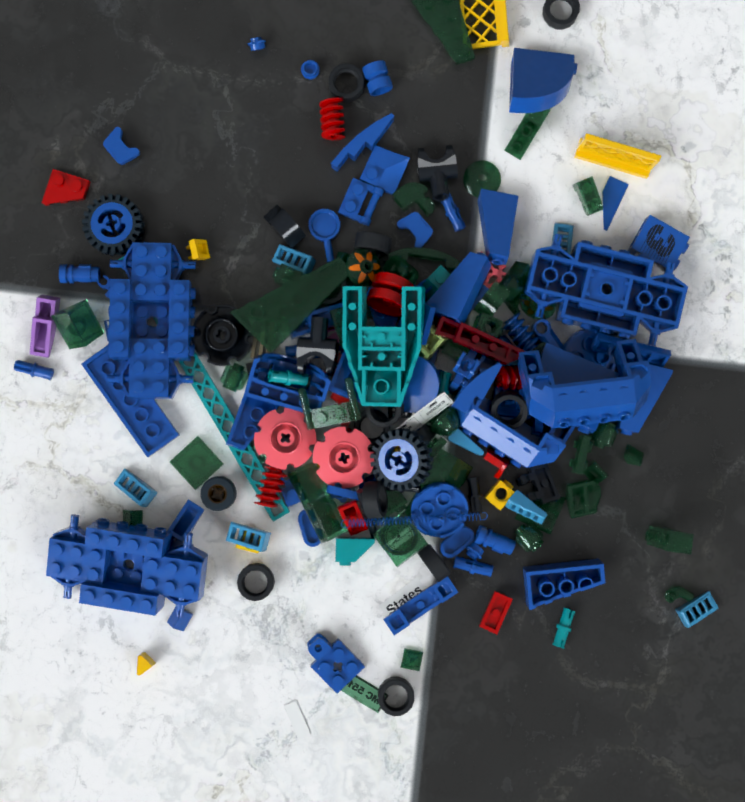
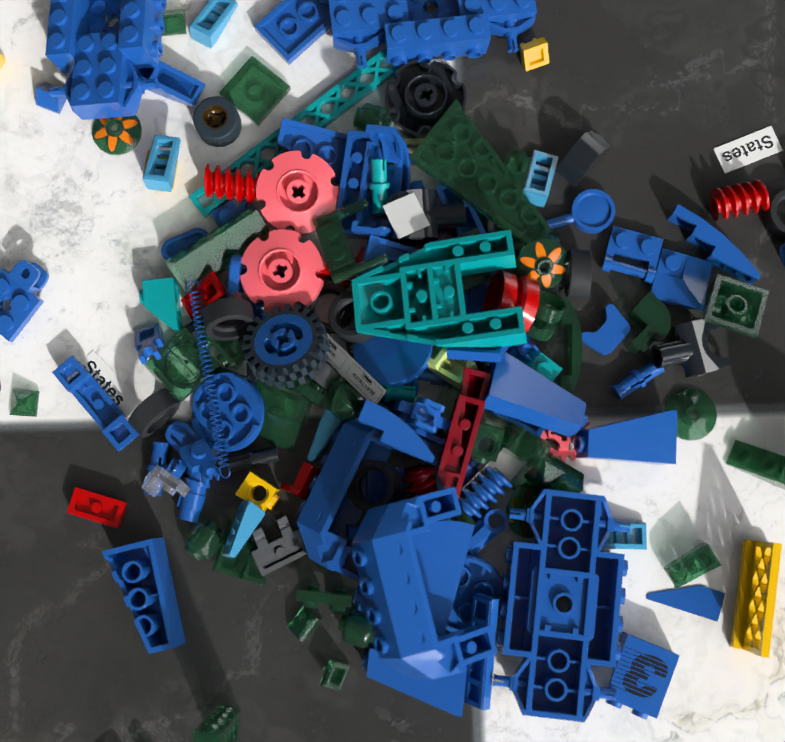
camera: 90 degrees right, 5 degrees down
(222, 571) = (118, 141): none -> clear green dish
(255, 596) = (99, 167): black tyre -> none
(292, 104) = (748, 149): none -> white sticker
(316, 360) = (406, 215): none -> white sticker
(380, 562) = (148, 341): none -> blue plate
(412, 135) = (735, 305): none -> clear green slope
(471, 532) = (200, 458): none -> blue plate
(488, 555) = (162, 479): none -> clear bracket
(563, 628) = (84, 605): teal pin -> none
(582, 498) = (266, 610): clear green slope -> none

